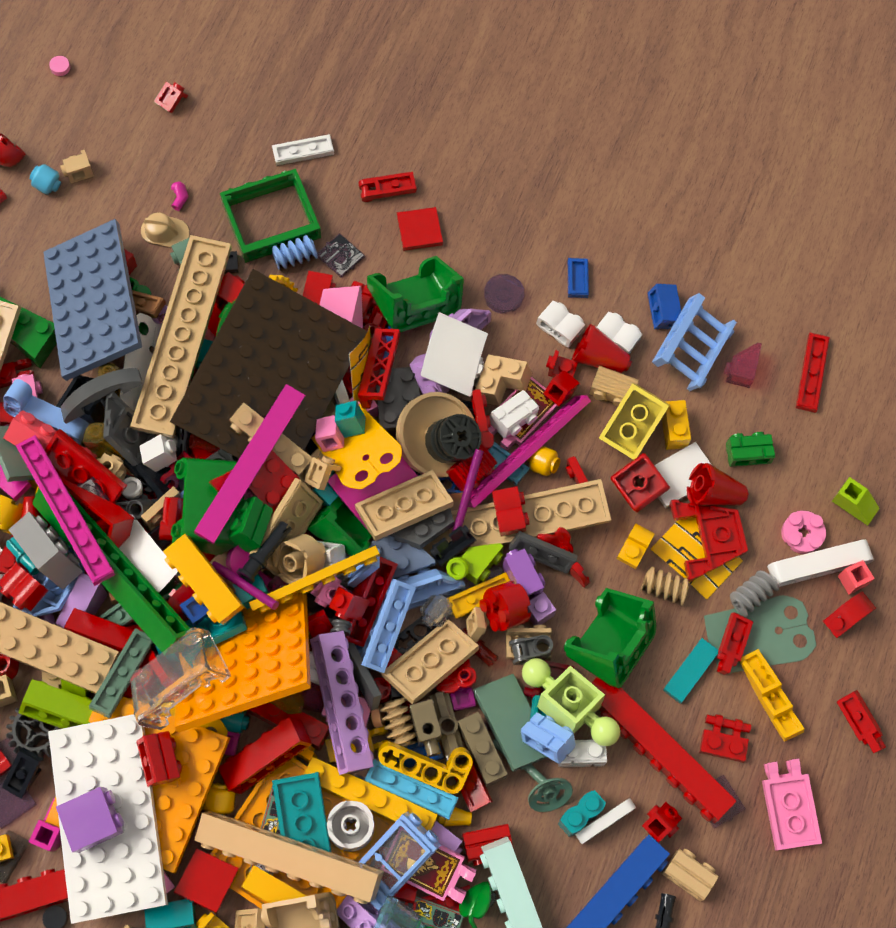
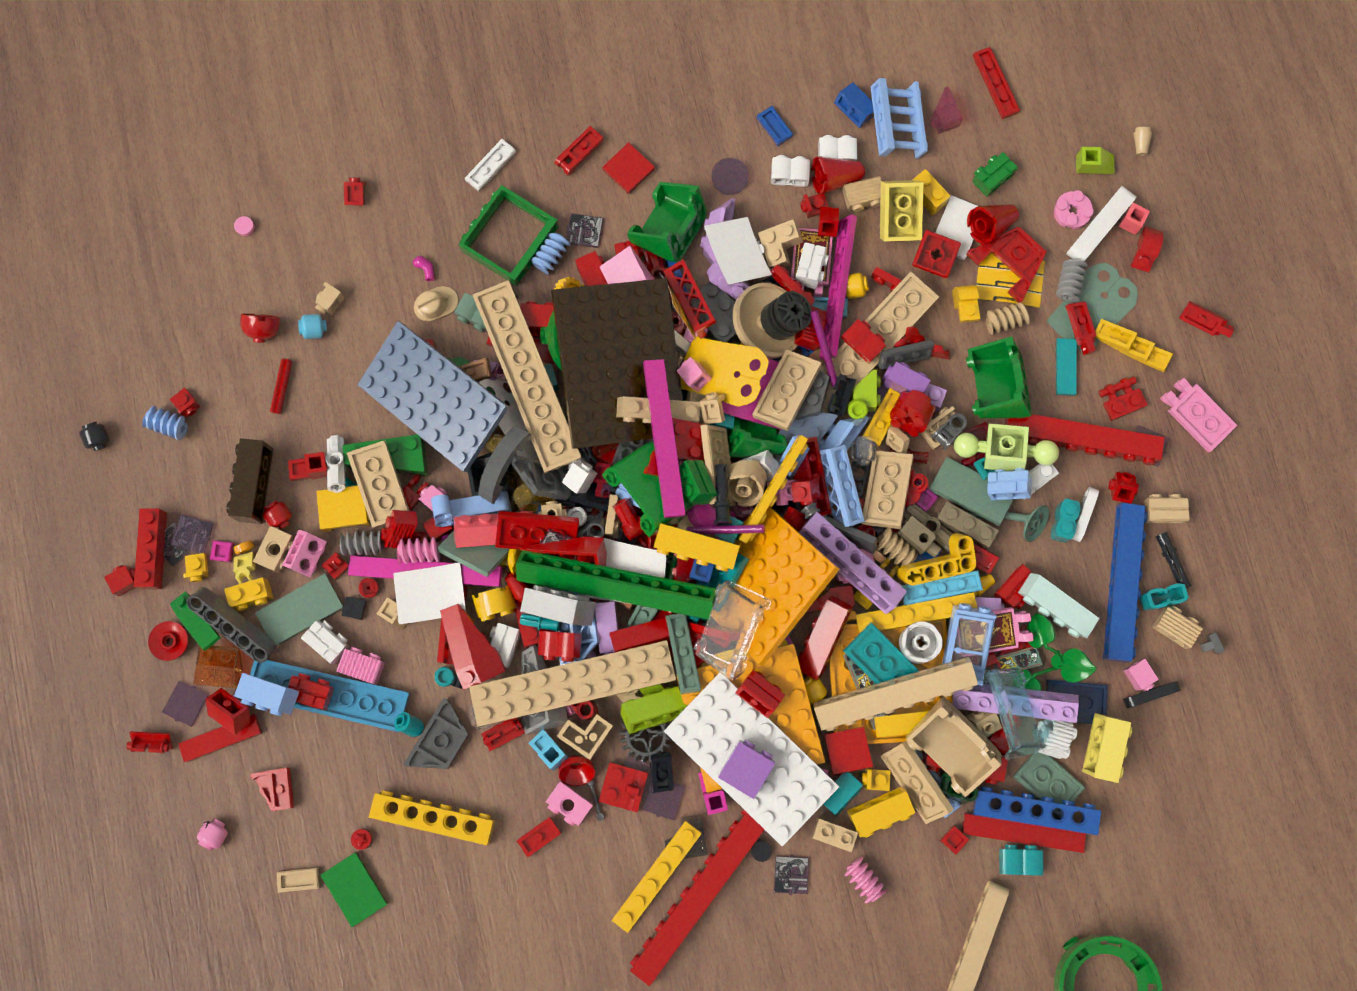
camera: 30 degrees left, 10 degrees up
(65, 510) = (552, 567): dark pink tile -> none
(350, 419) = (701, 353): teal brick -> none

